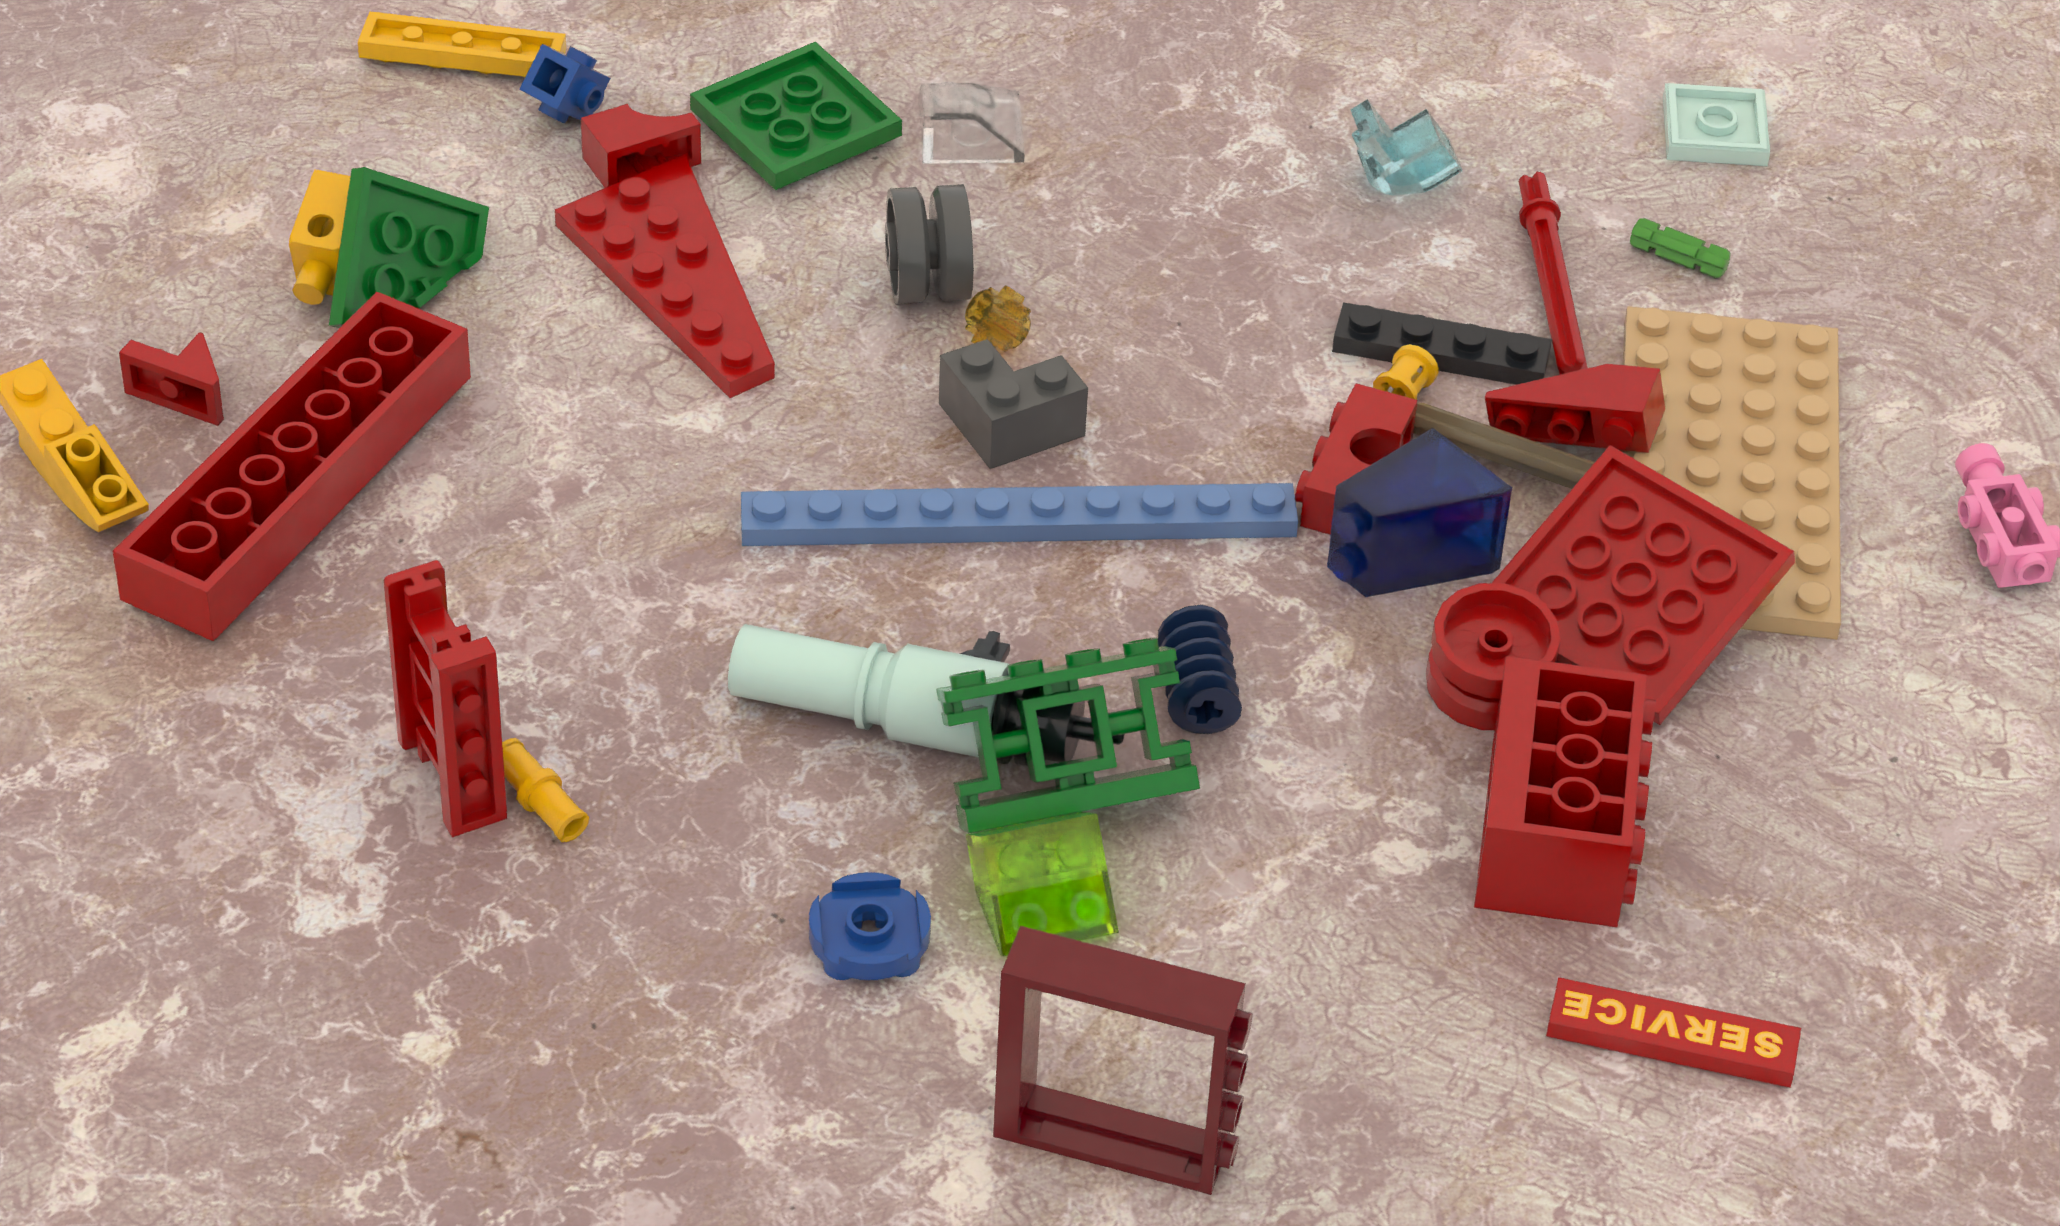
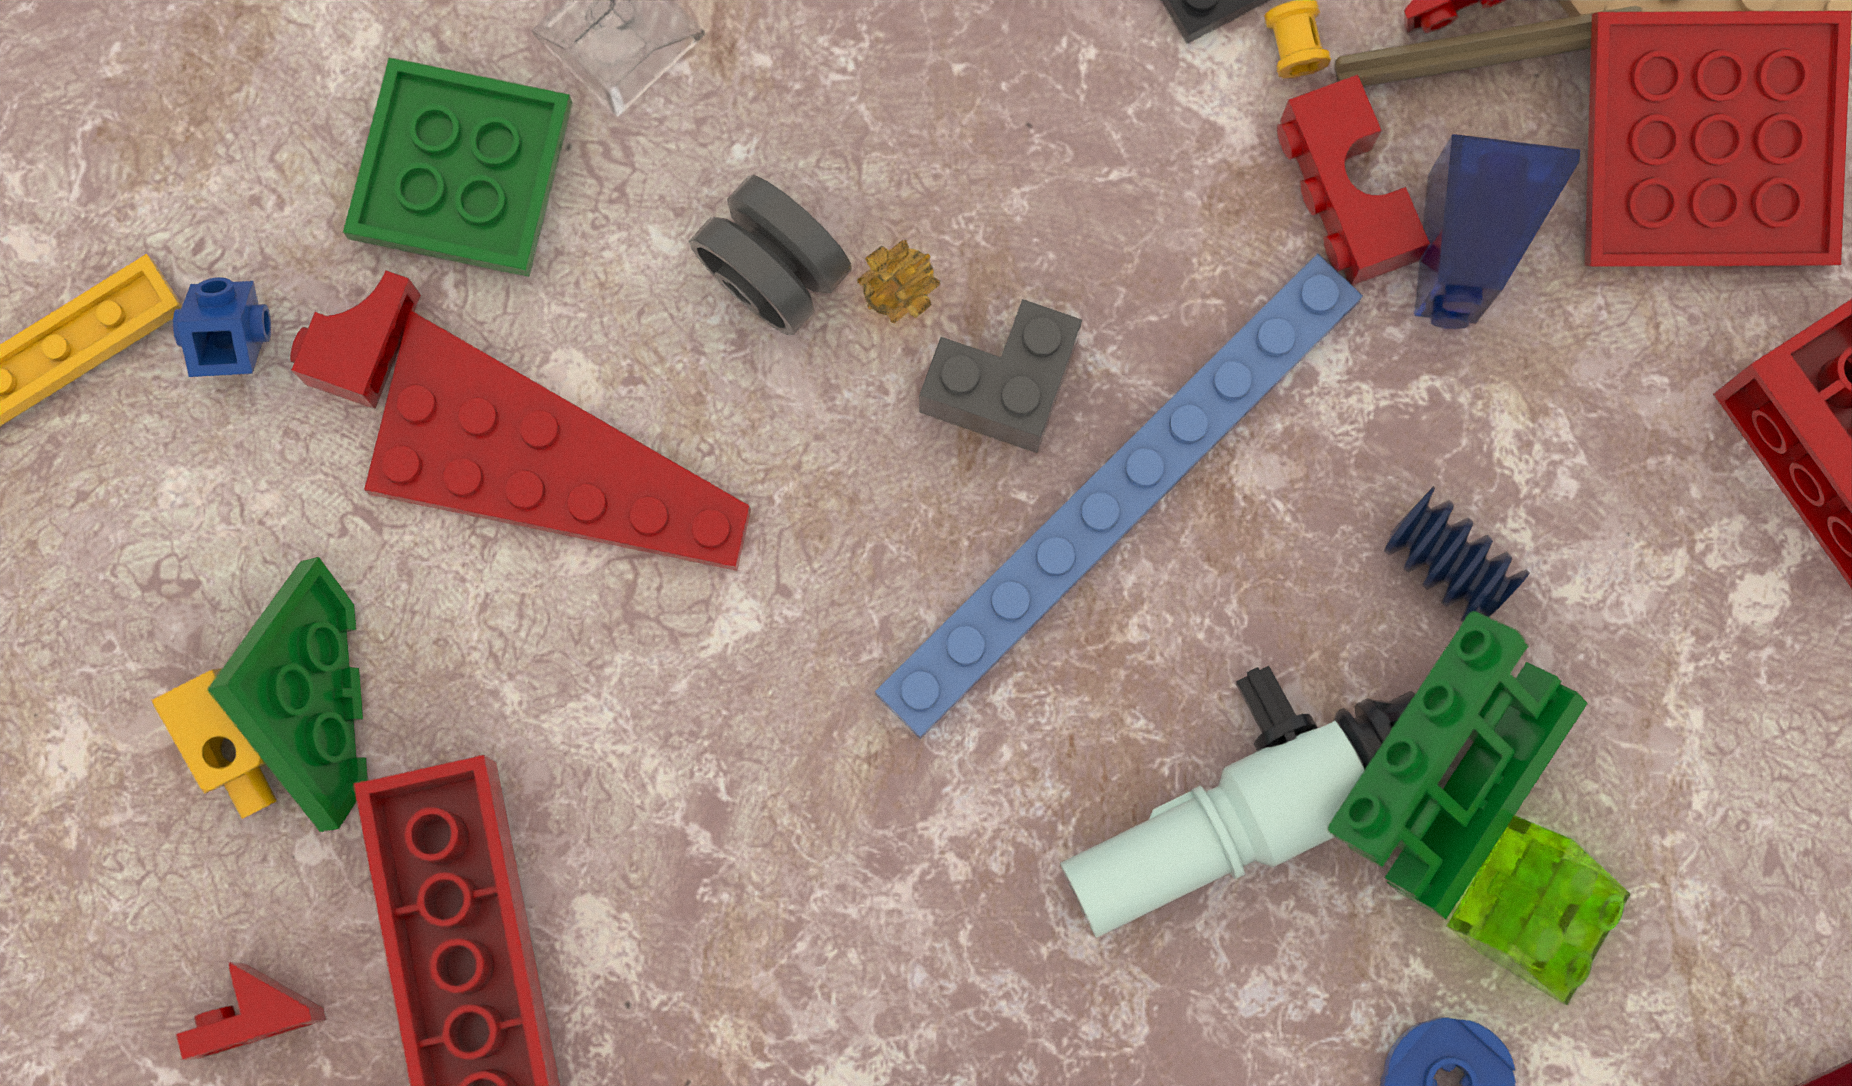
camera: 40 degrees left, 35 degrees up
(1471, 644) = (1676, 328): red wheel -> none

